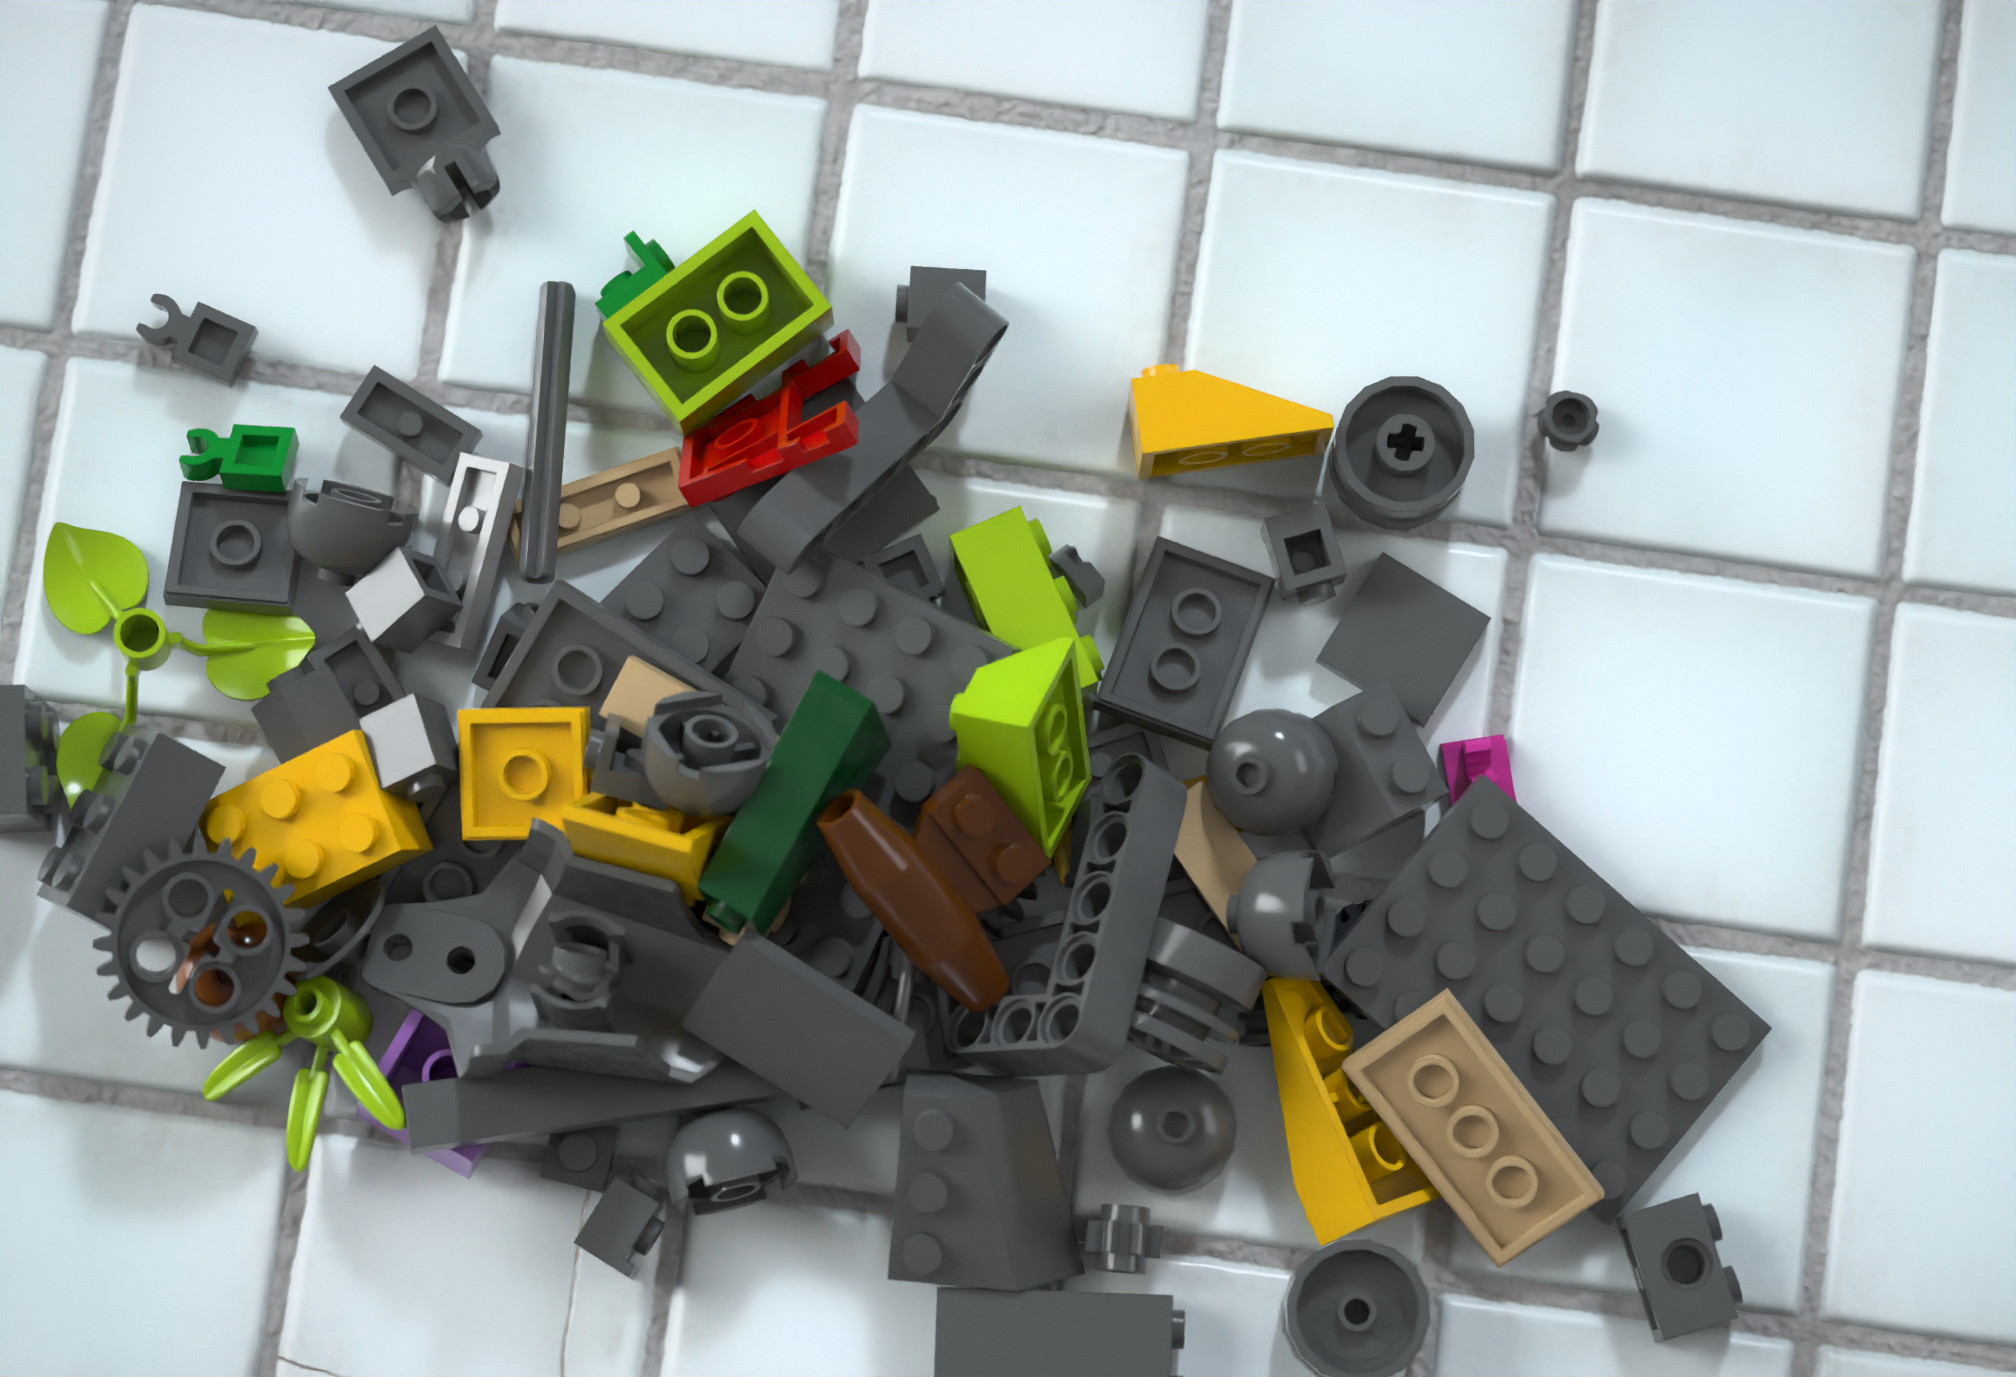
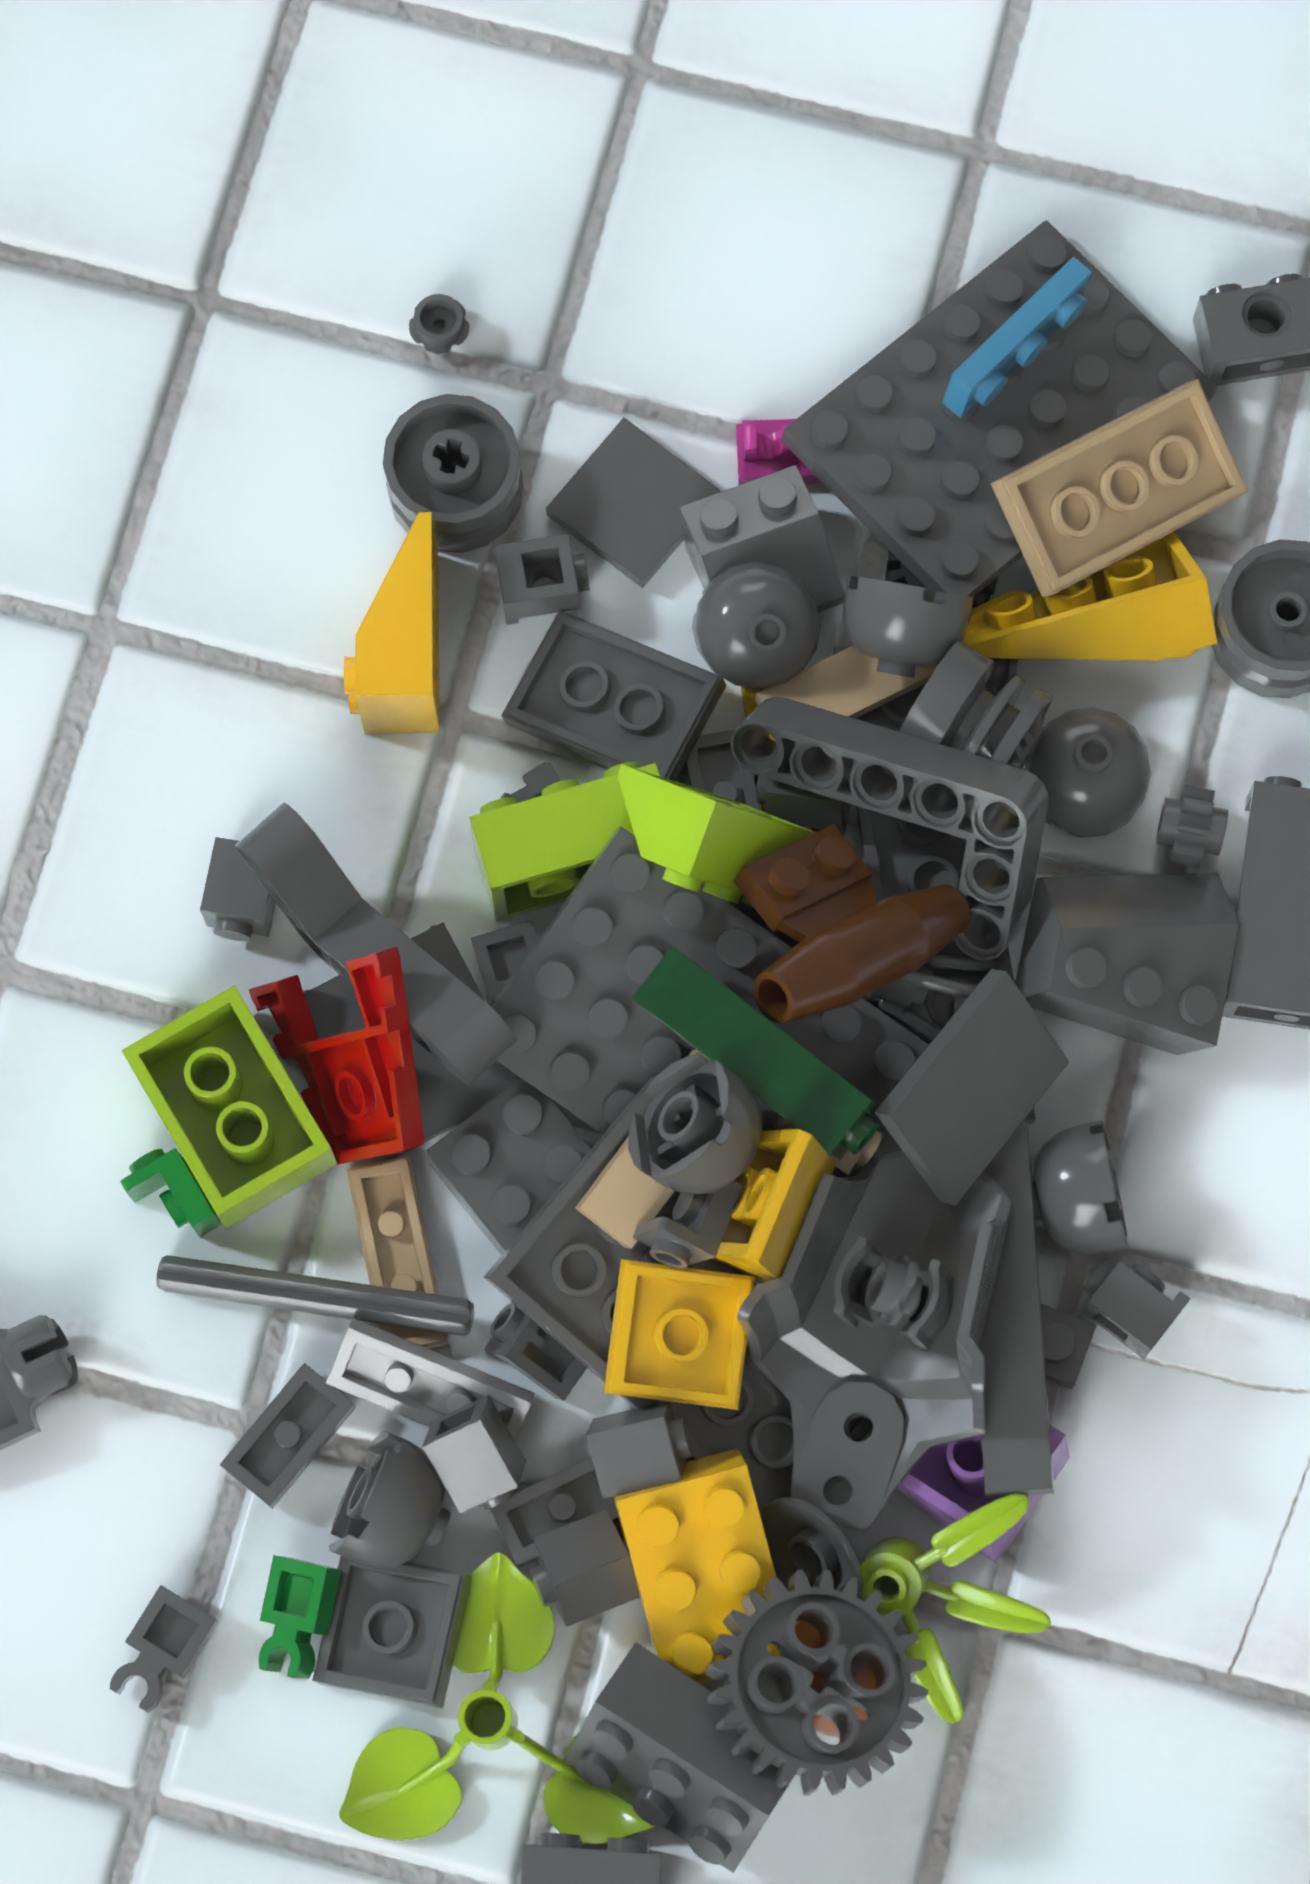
camera: 80 degrees left, 5 degrees down
(1613, 1003) = (1018, 339): none -> dark azure plate

